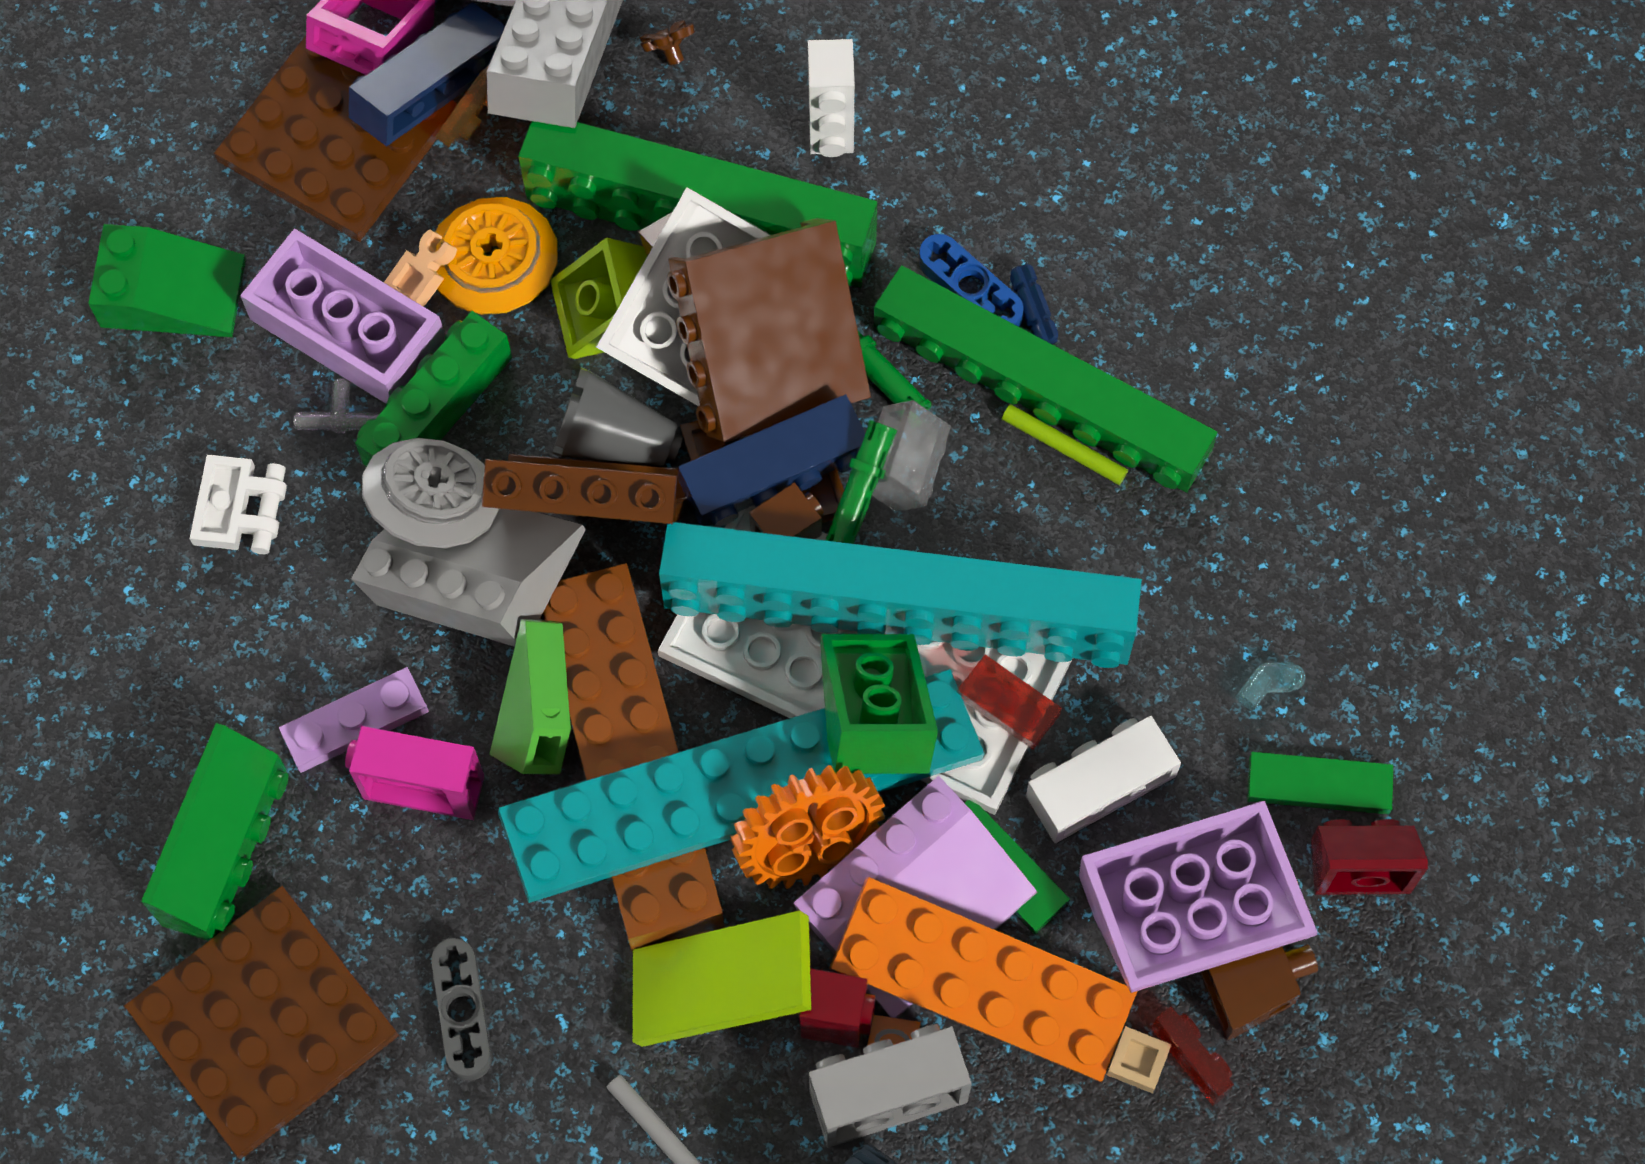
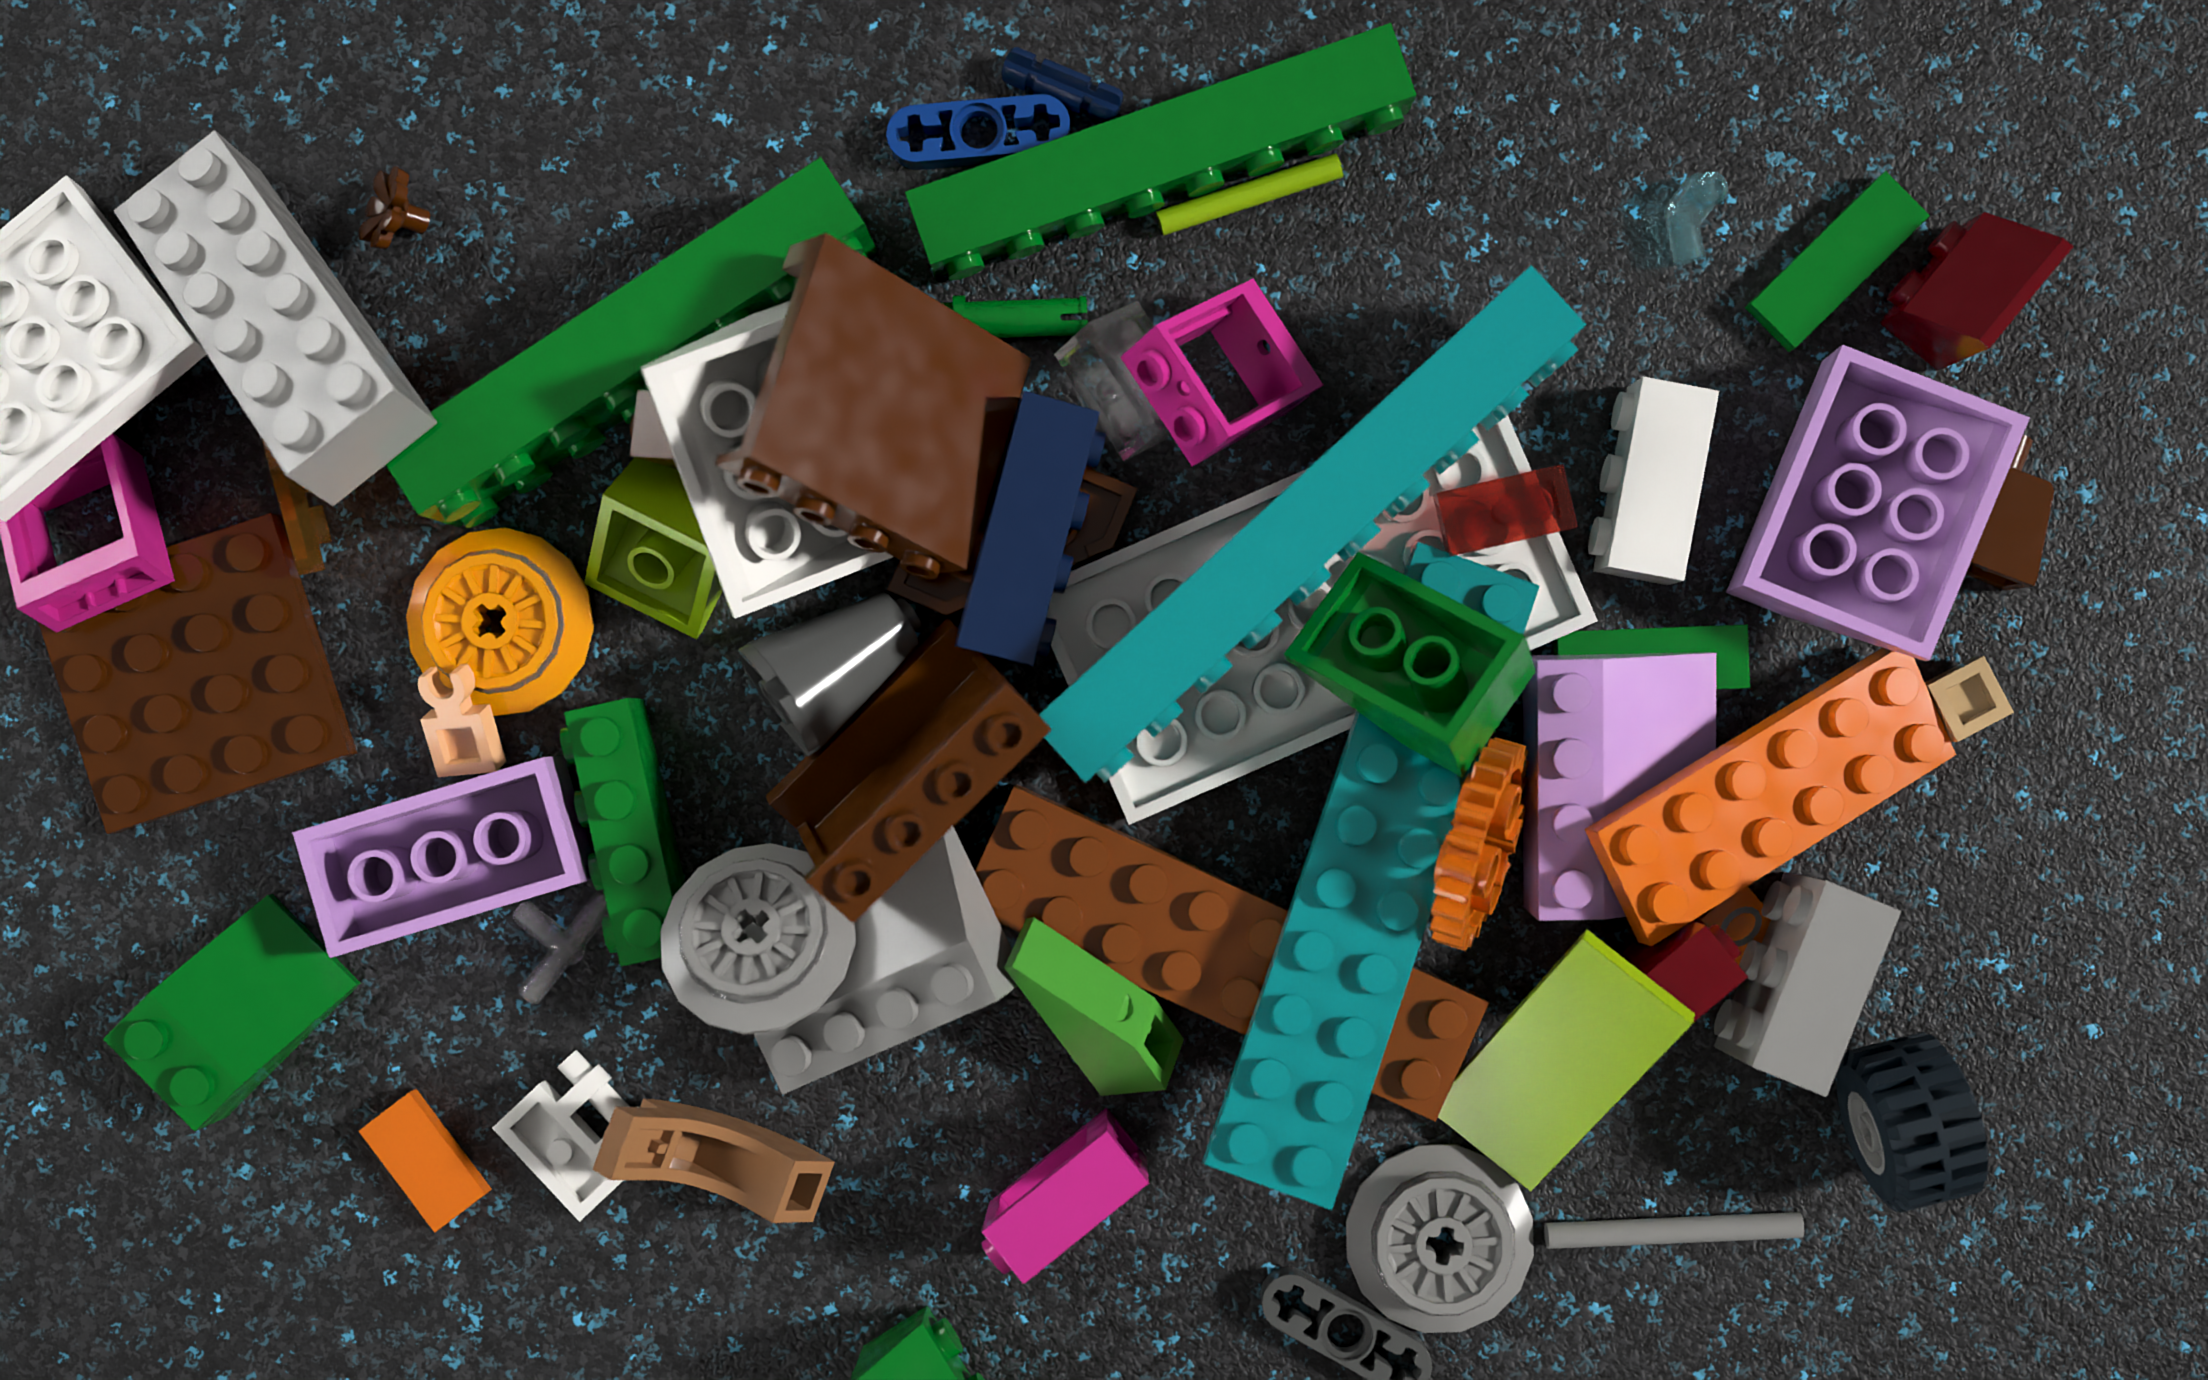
camera: 50 degrees left, 20 degrees up
(158, 440) = (425, 1160): none -> orange tile
(283, 573) = (715, 1154): none -> medium nougat arch
(332, 727) = (933, 1198): lavender plate -> none
(424, 74) = (209, 523): dark blue brick -> none
(552, 1057) = (1412, 1200): none -> light grey piece
(789, 515) = (1109, 573): reddish brown brick -> none
(831, 96) = (635, 91): white brick -> none
(861, 483) = (1133, 447): green pin -> none
(989, 491) = (1239, 324): none -> dark pink window
(1206, 1070) = (2035, 641): clear red plate -> none

